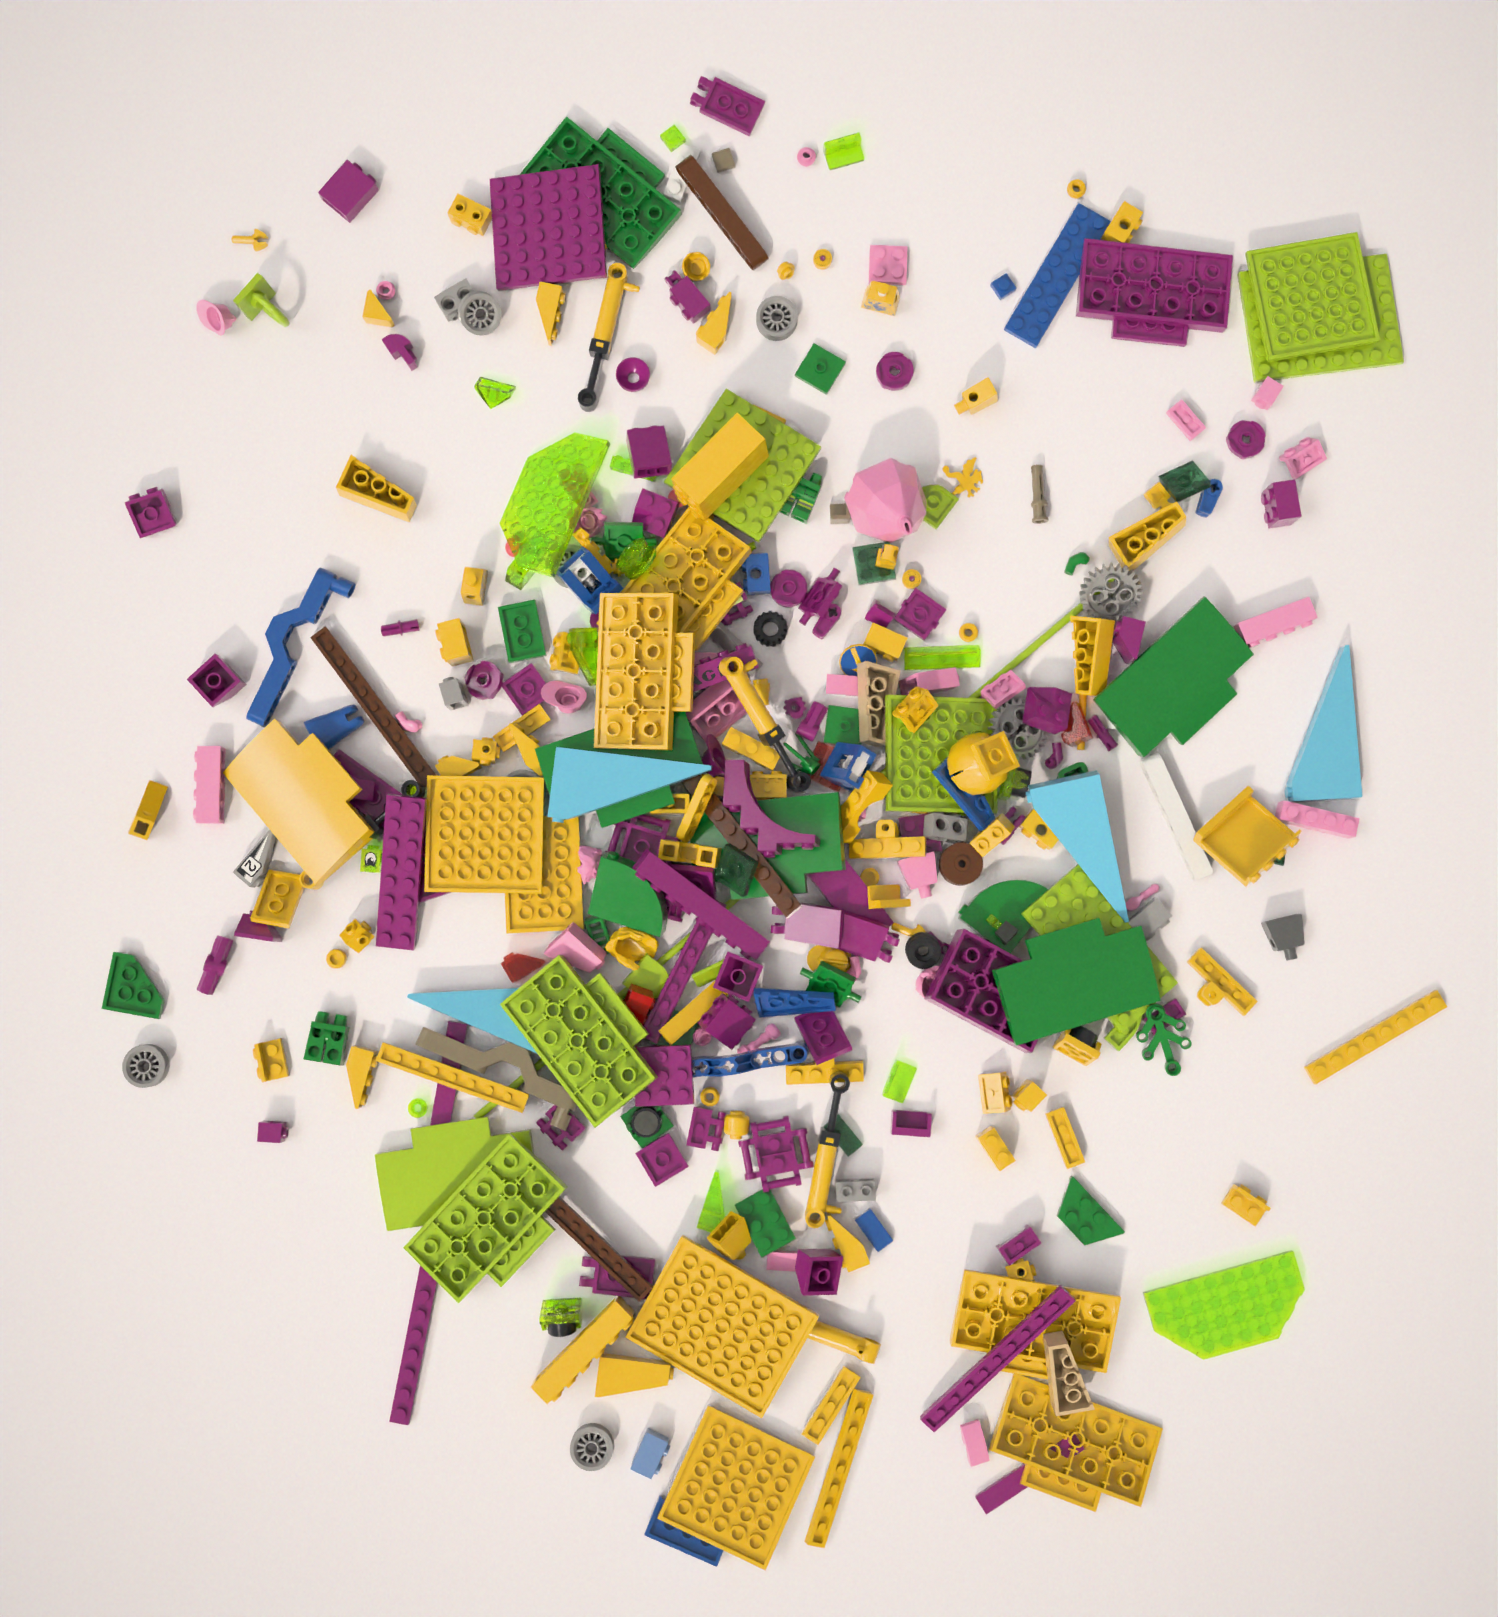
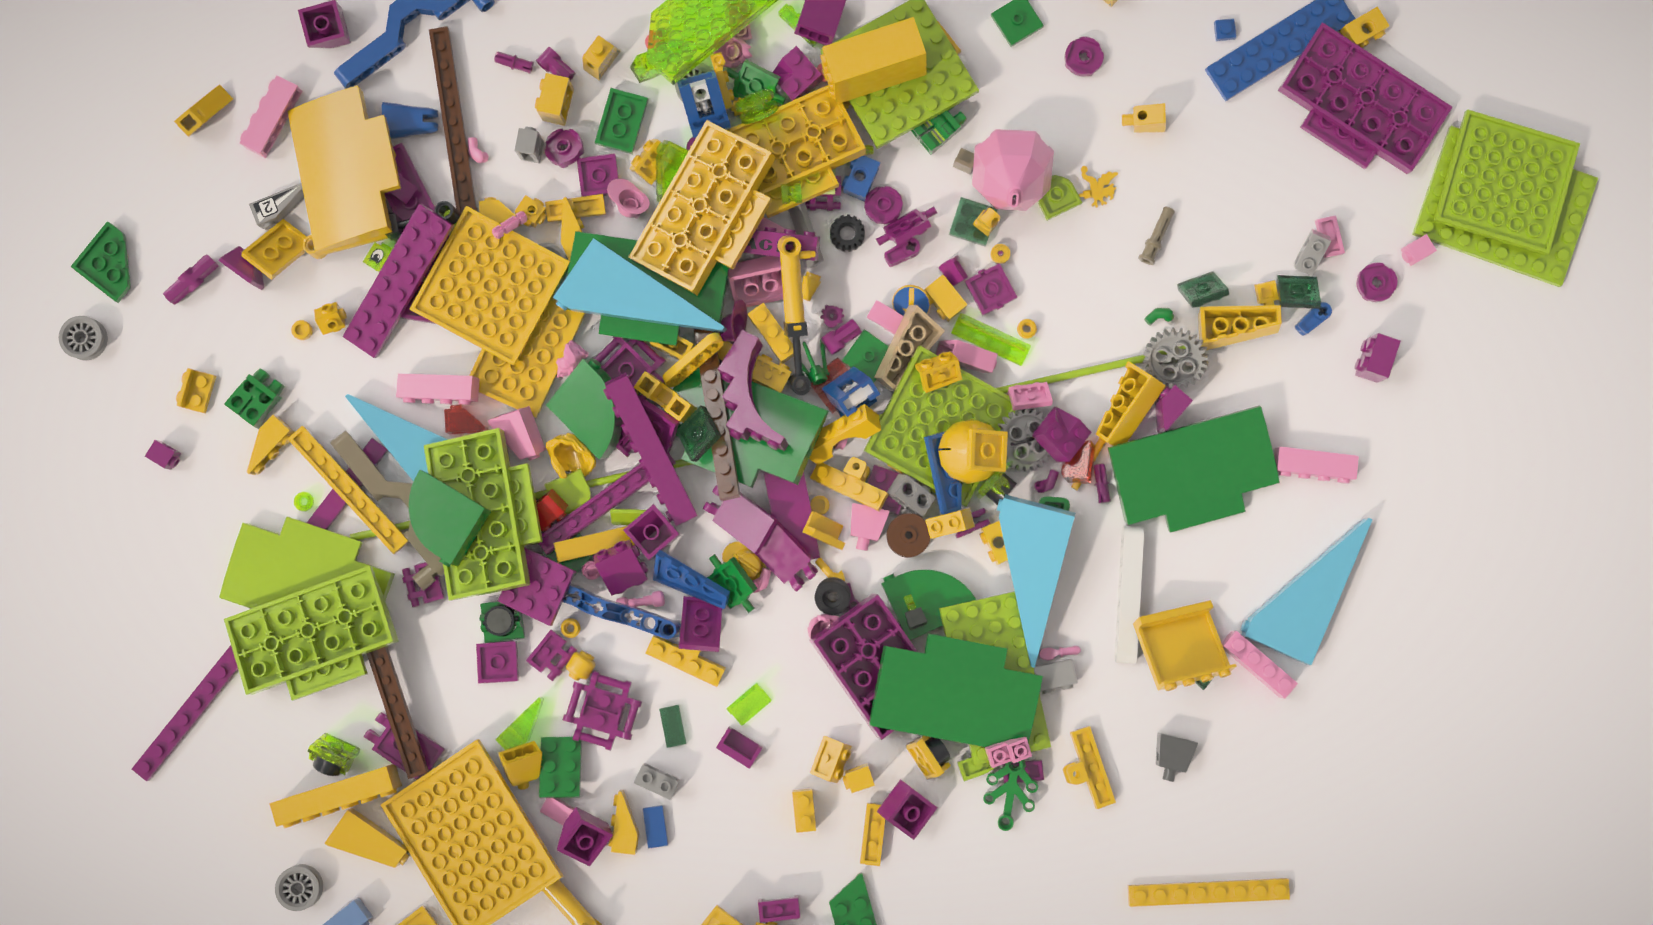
camera: 30 degrees right, 0 degrees up
(434, 611) = (552, 63): none -> magenta piece
(474, 772) = (509, 224): none -> bright pink axle
(485, 947) = (437, 388): none -> bright pink brick
(553, 1058) = (444, 518): none -> green brick
(590, 920) = (541, 422): green slope -> none
(707, 619) = (791, 193): none -> clear neon green wheel
(825, 1159) = (644, 739): yellow piece -> none
(1084, 1101) = (907, 809): none -> magenta brick
(1102, 521) = (1203, 289): none -> clear green plate
(1144, 1005) = (1007, 751): none -> bright pink slope
(1178, 441) = (1312, 252): none -> light grey brick
(1303, 456) = (1421, 325): bright pink bracket -> none

